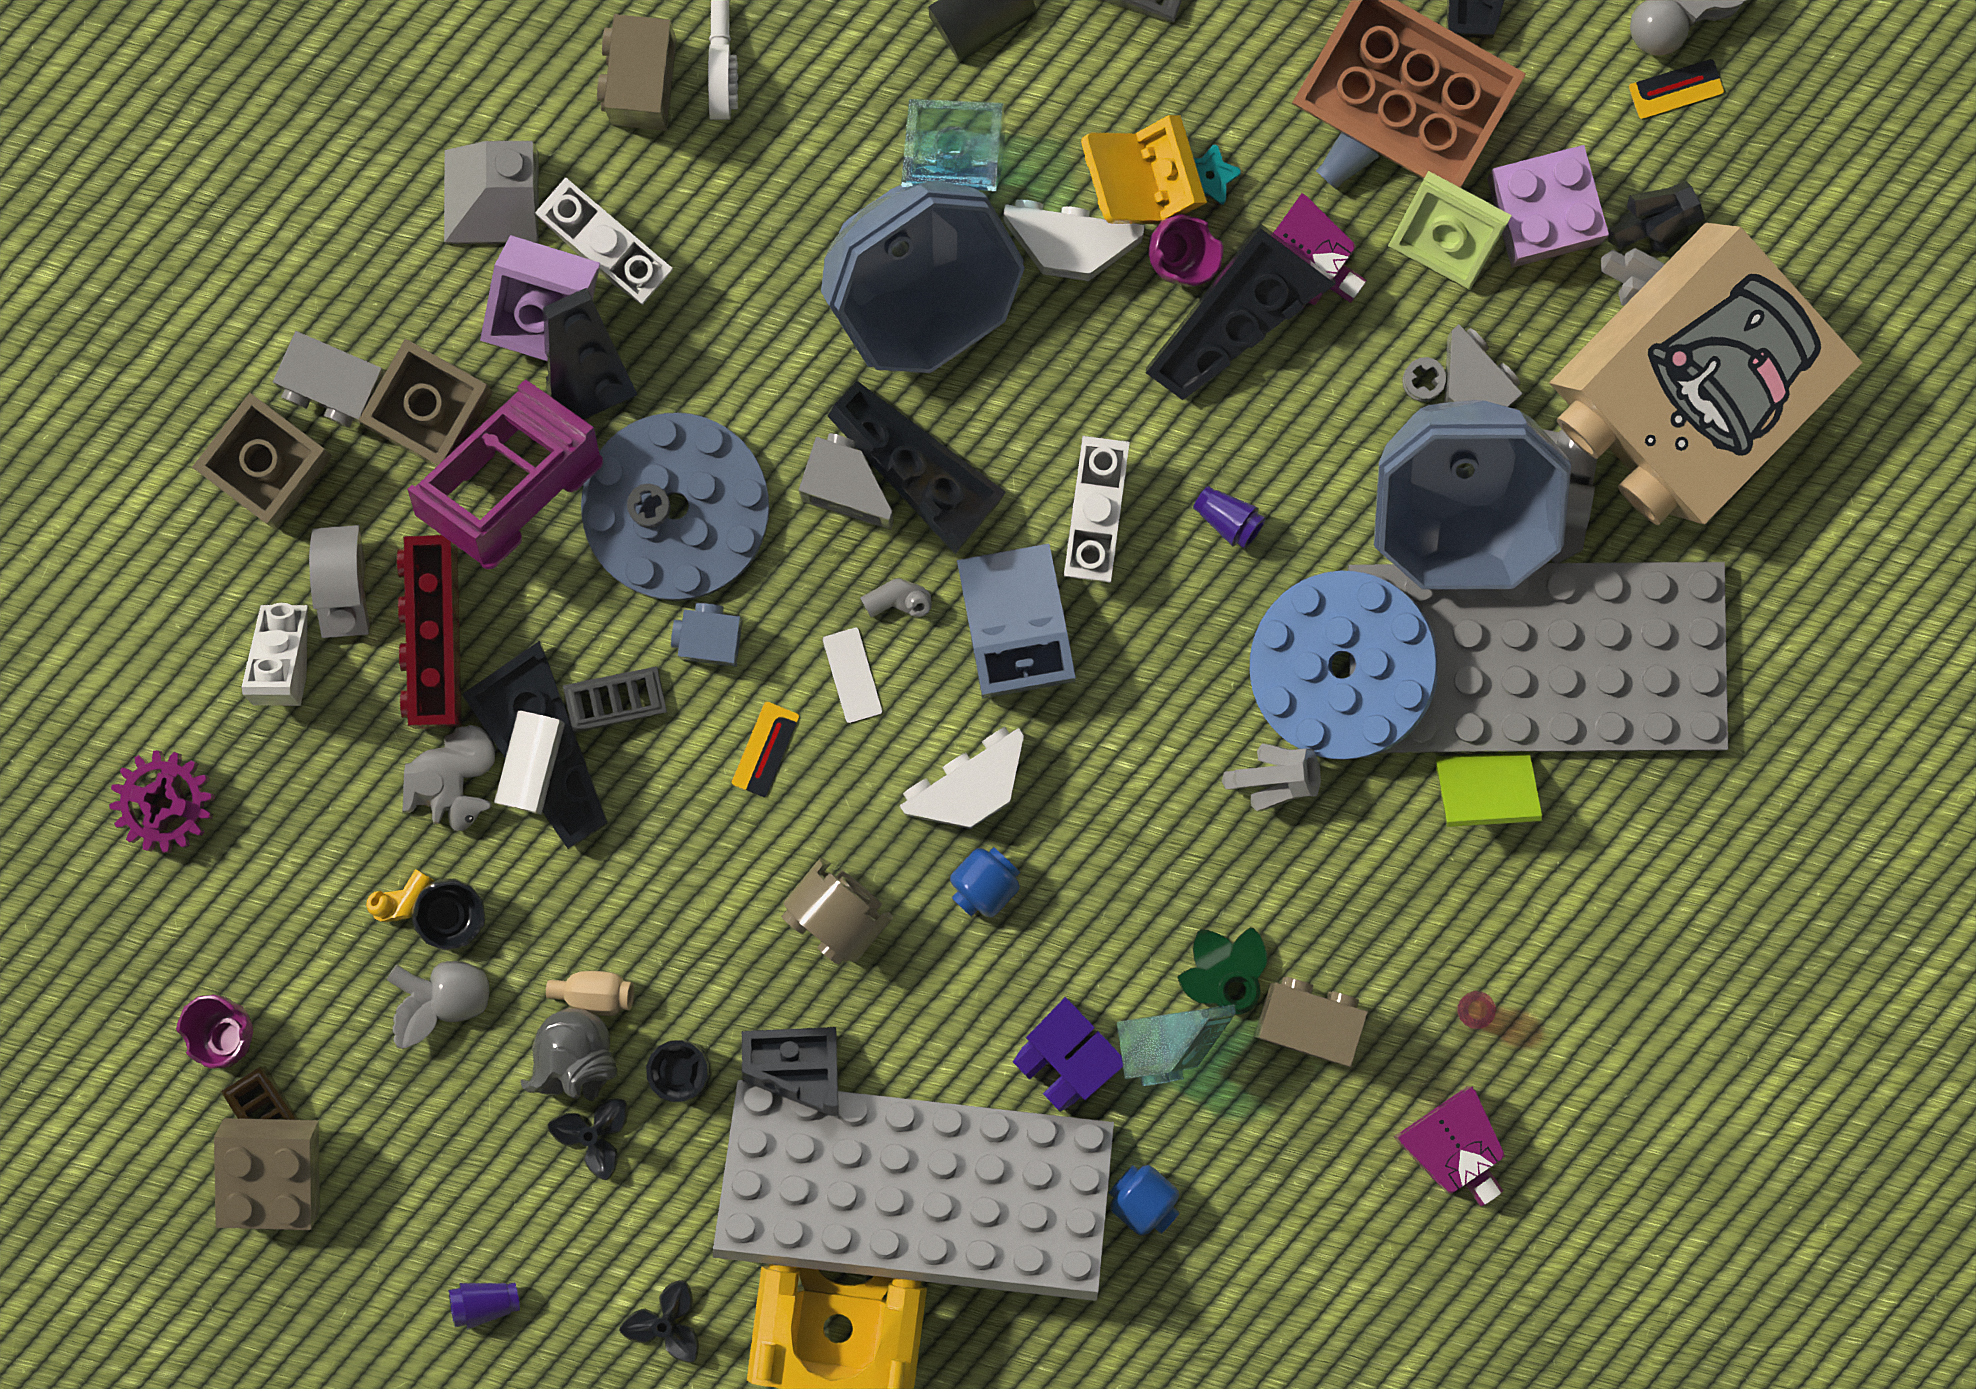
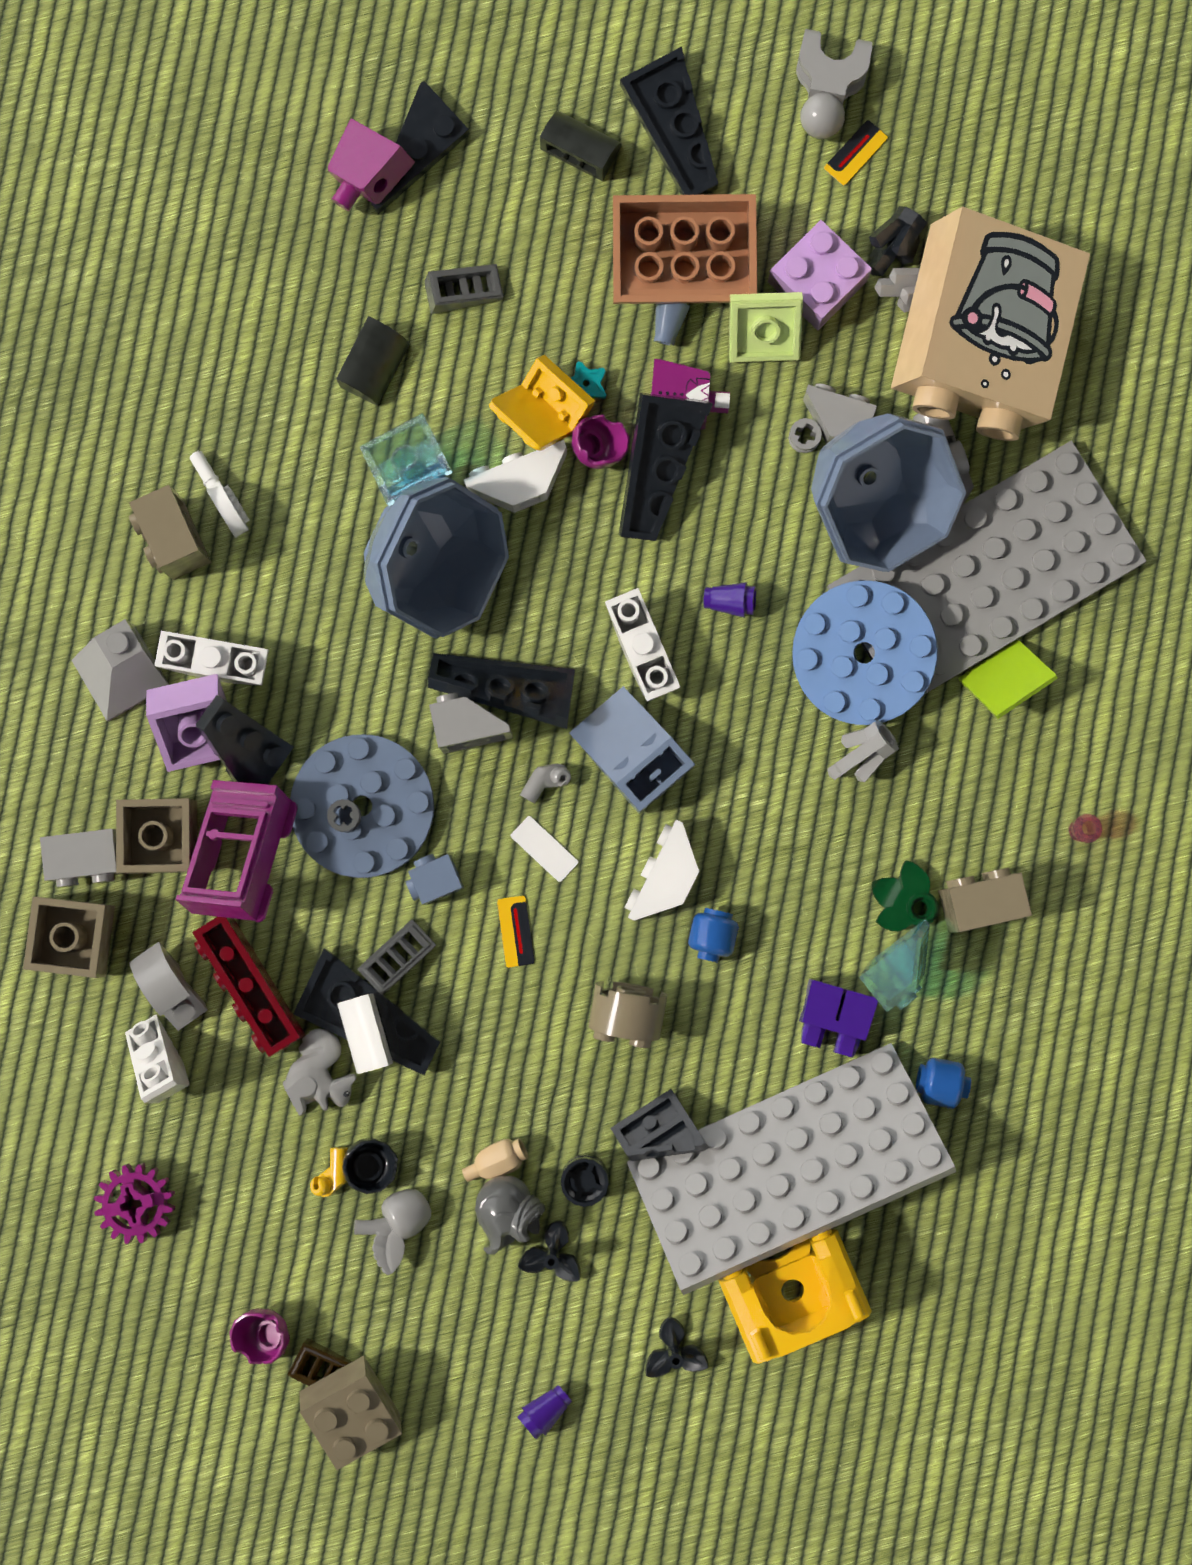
camera: 25 degrees left, 0 degrees up
(1456, 1146) = (1125, 925): magenta torso -> none

